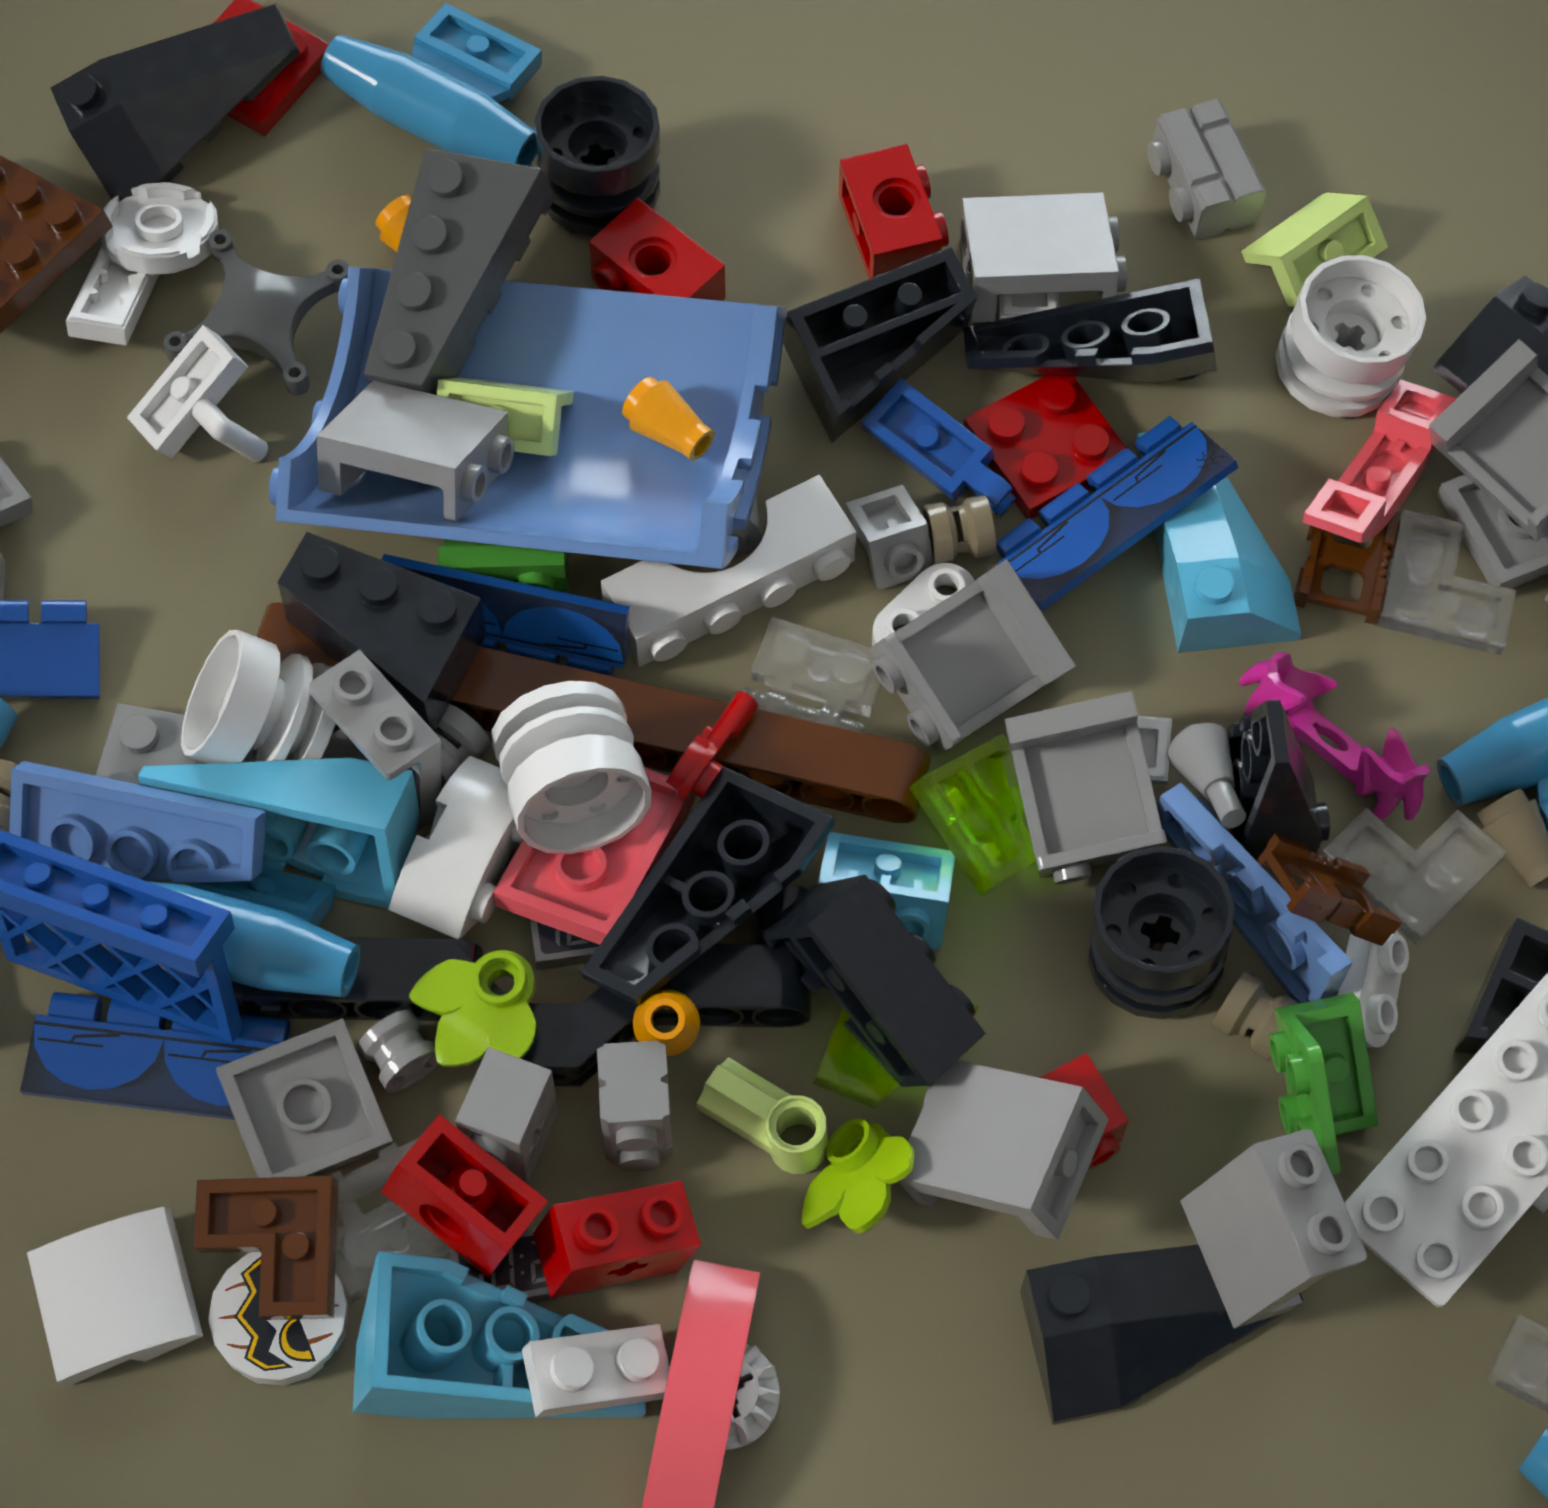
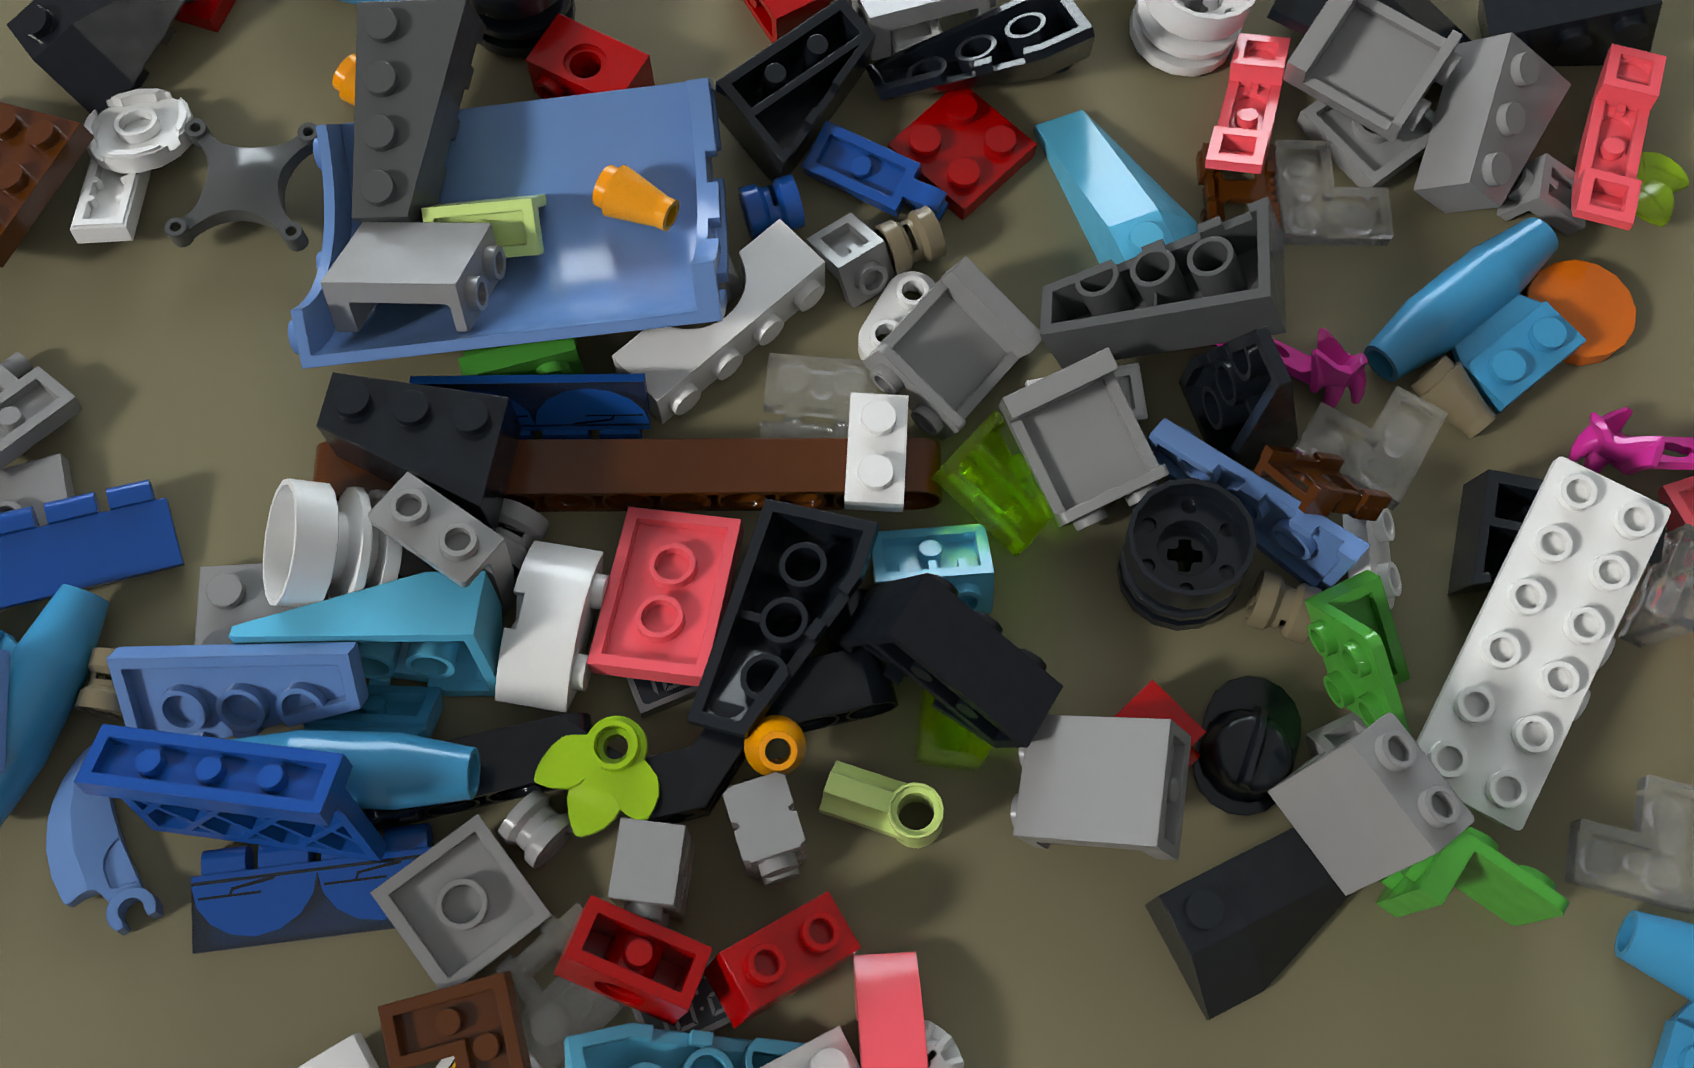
camera: 15 degrees left, 5 degrees up
(188, 398) = (200, 273): white plate -> none
(570, 767) = (629, 533): white wheel -> none
(697, 765) = (742, 504): red plate -> none
(816, 455) = (770, 203): none -> blue wheel
(855, 746) = (876, 452): none -> white plate
(858, 1177) = (981, 842): lime plate -> none
(1127, 505) = (1045, 191): blue windscreen -> none
(1174, 1149) = (1246, 745): none -> black piece
(1204, 759) = (1178, 393): light grey cone -> none
(1225, 649) = (1174, 293): none -> dark grey wedge
(1371, 1321) = (1478, 870): none -> bright green bracket

